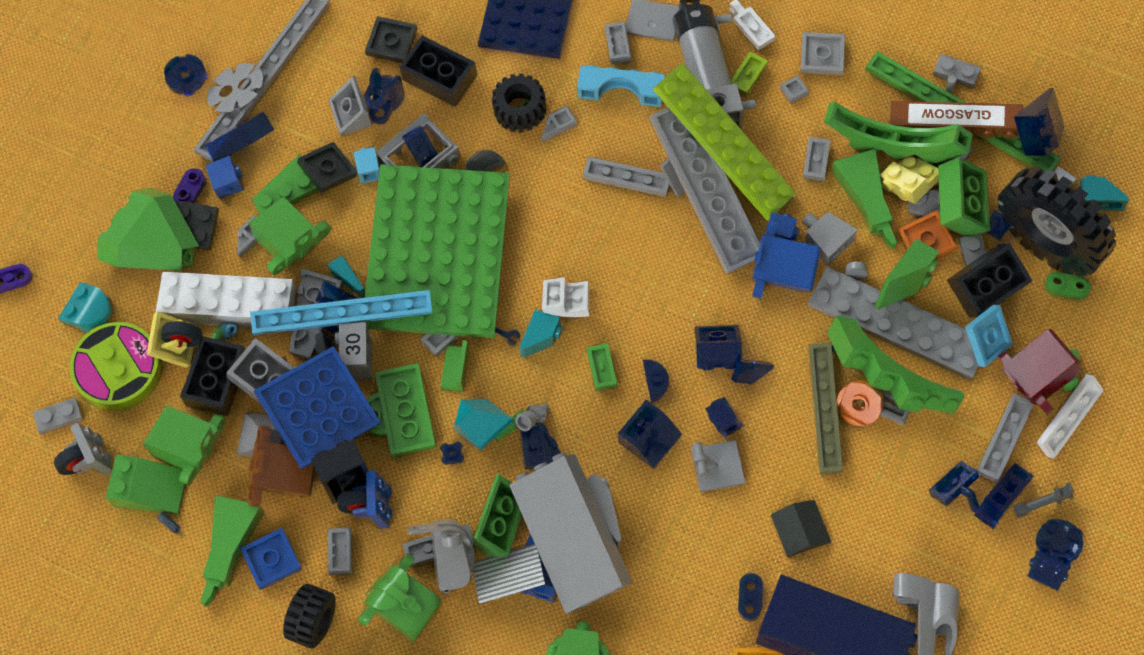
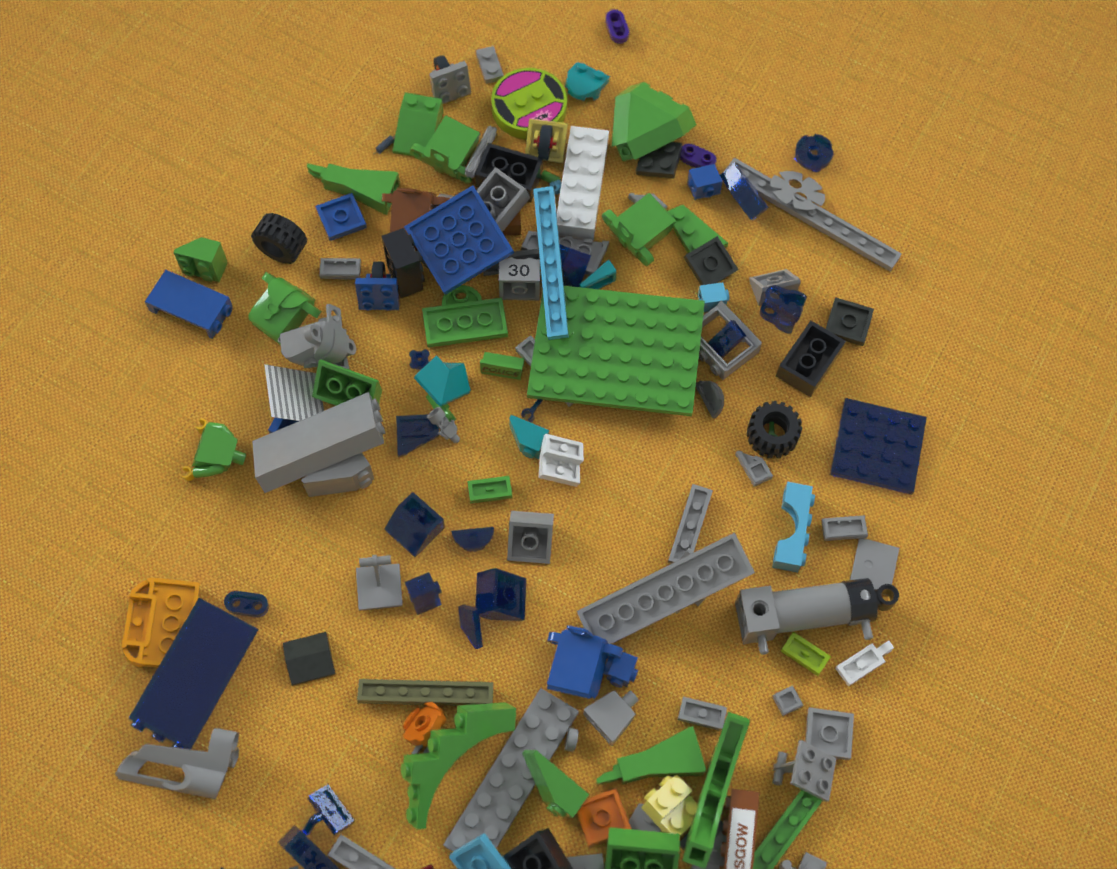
camera: 85 degrees right, 0 degrees up
(190, 408) = (488, 137): none -> light grey axle
(651, 322) = (530, 537): none -> light grey slope
(724, 141) = (712, 609): lime plate -> none
(862, 61) = (811, 770): none -> light grey plate

